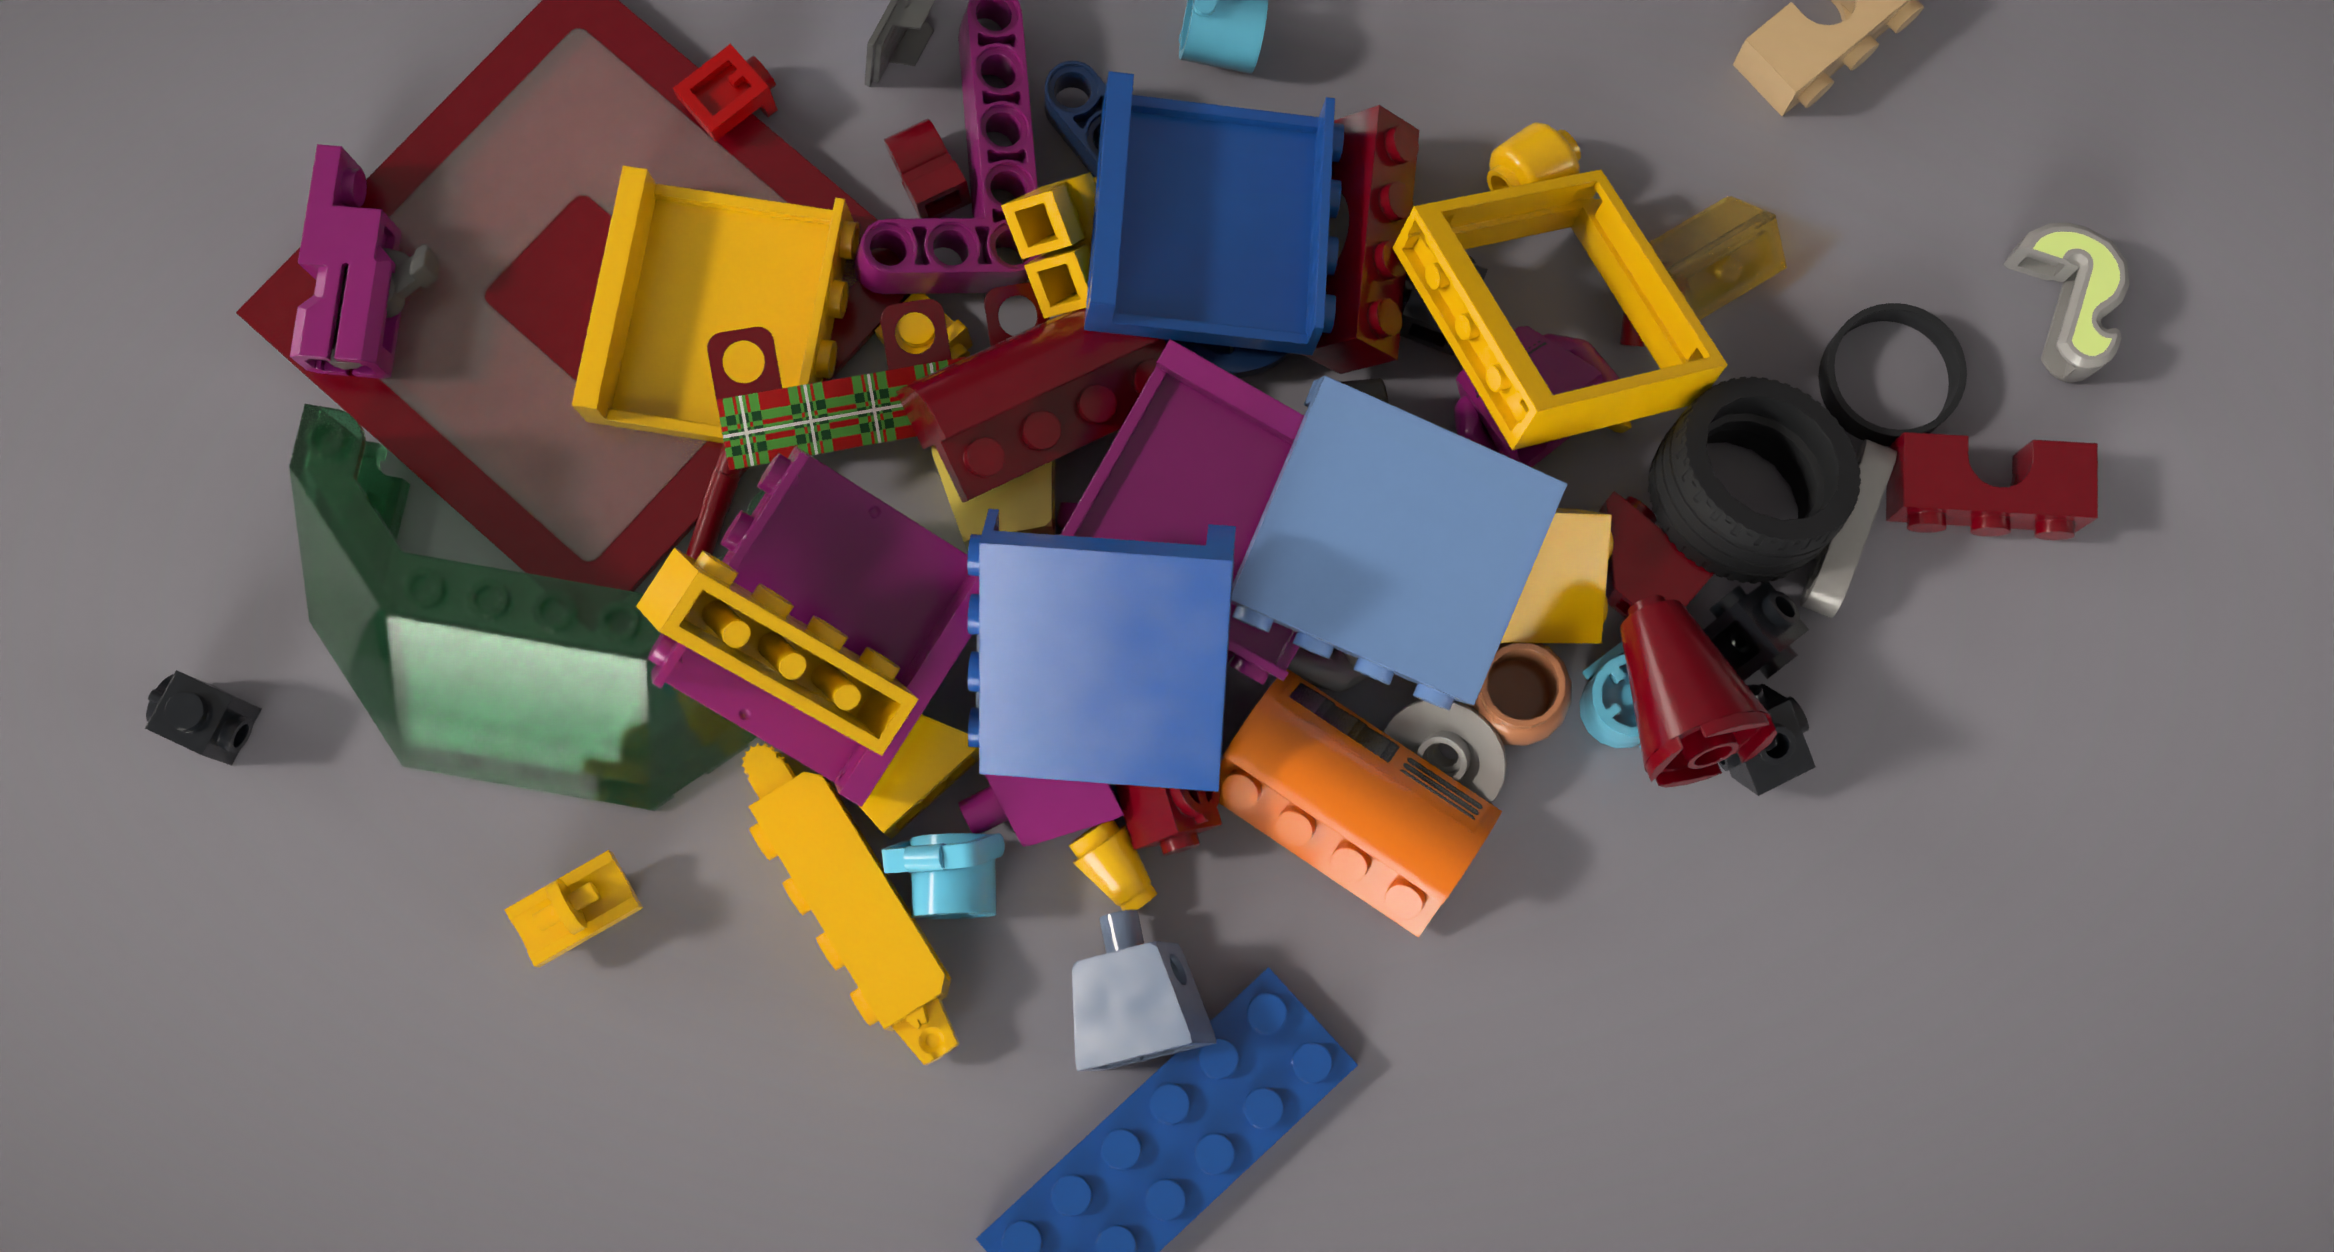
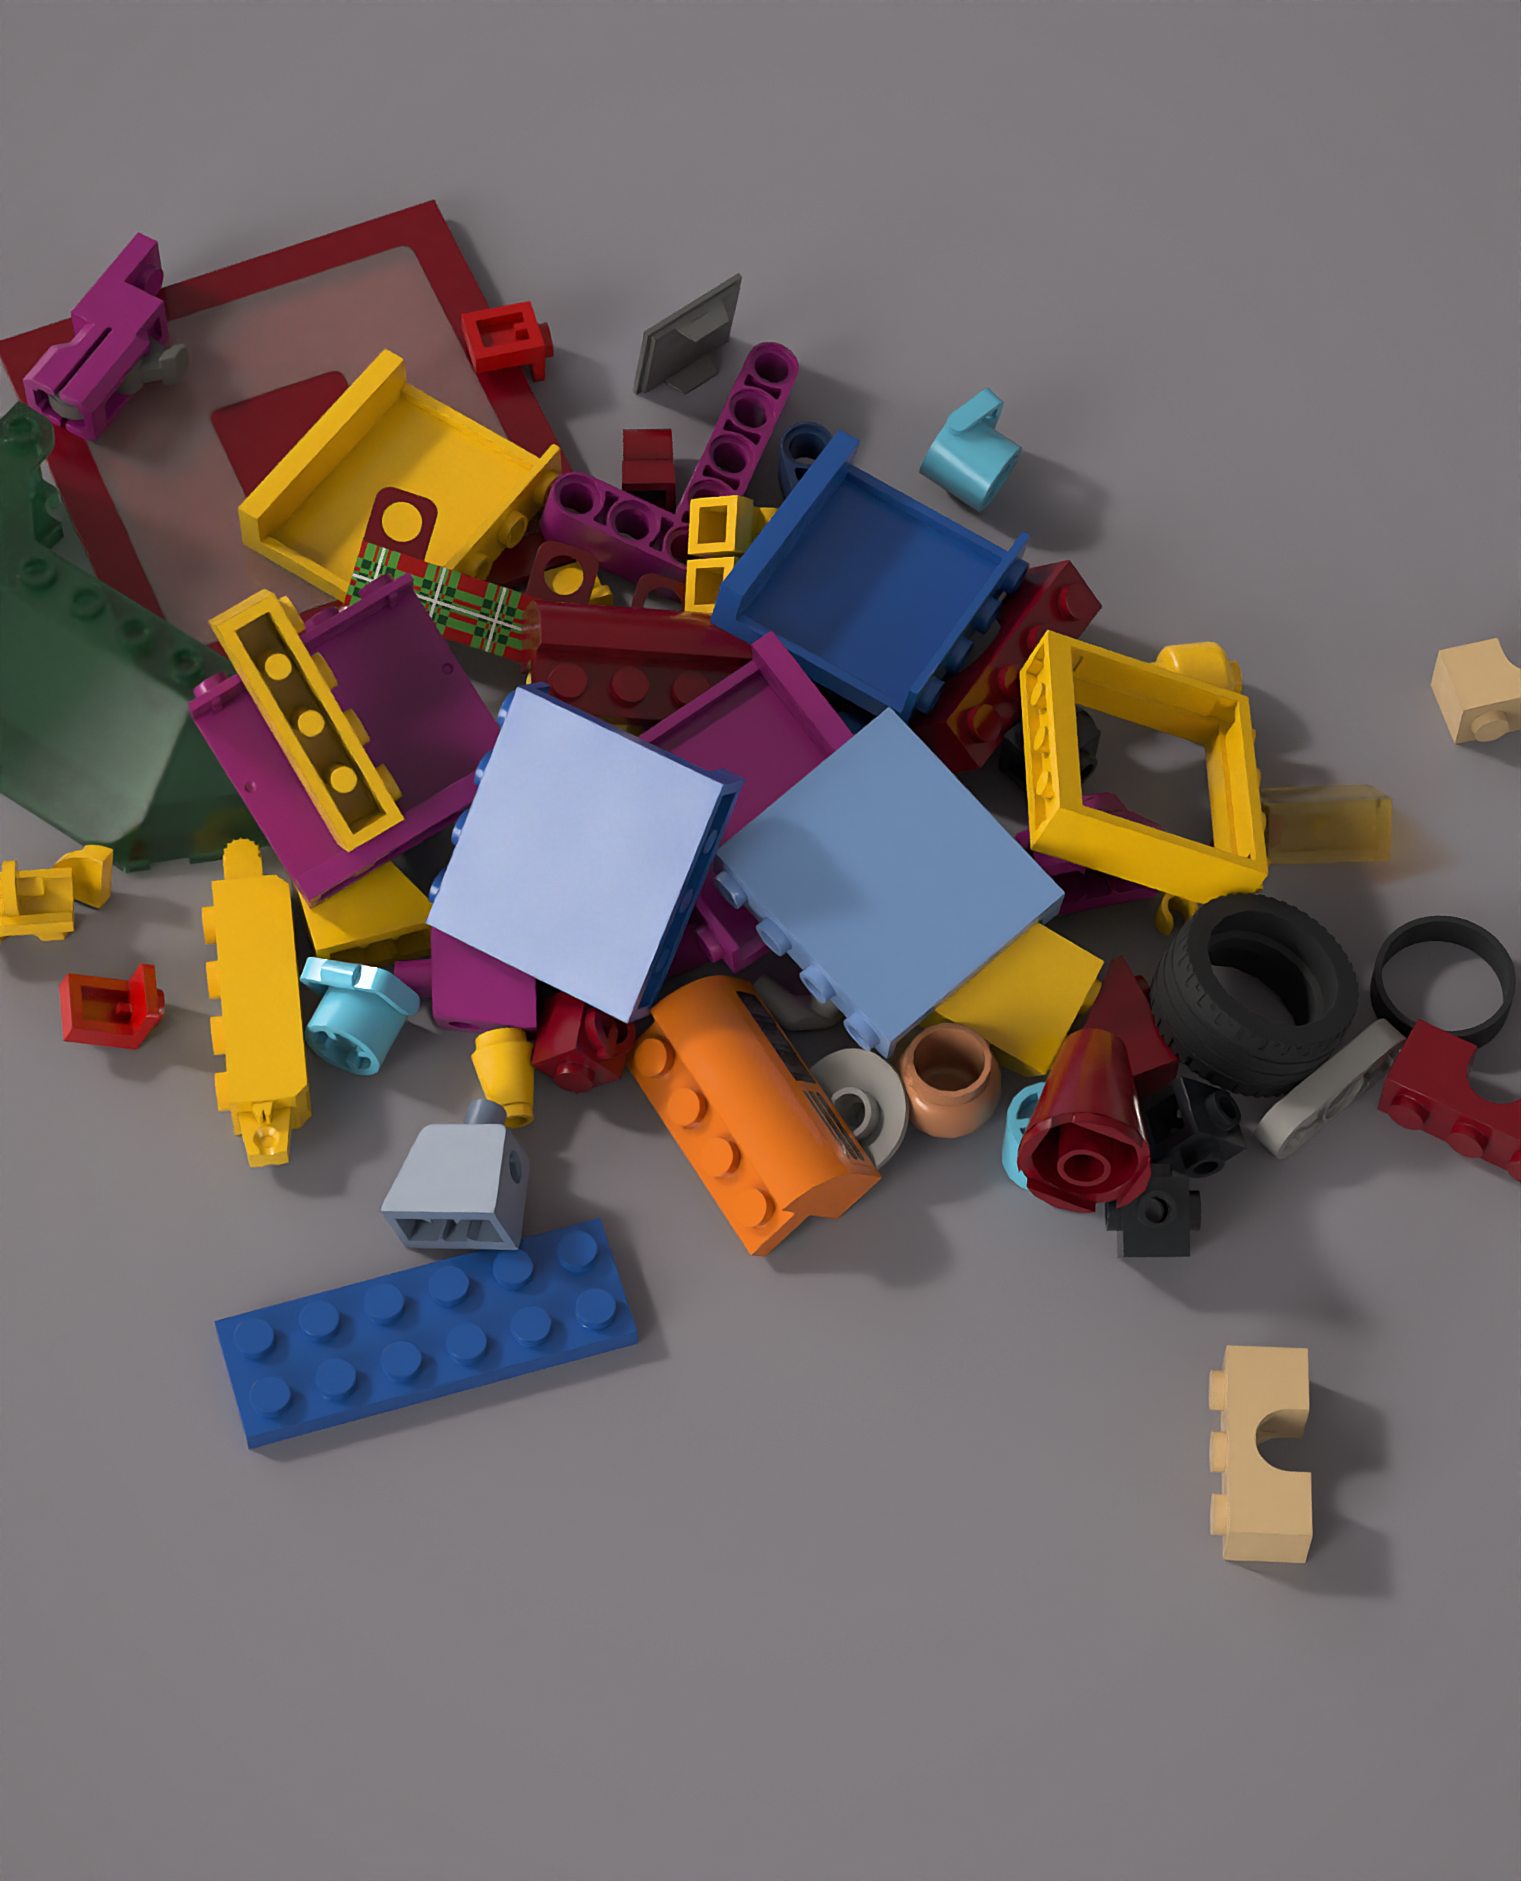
camera: 20 degrees right, 20 degrees down
(624, 837) = (91, 873): none -> yellow tile
(717, 970) = (111, 1009): none -> red bracket
(1974, 978) = (1261, 1508): none -> tan arch

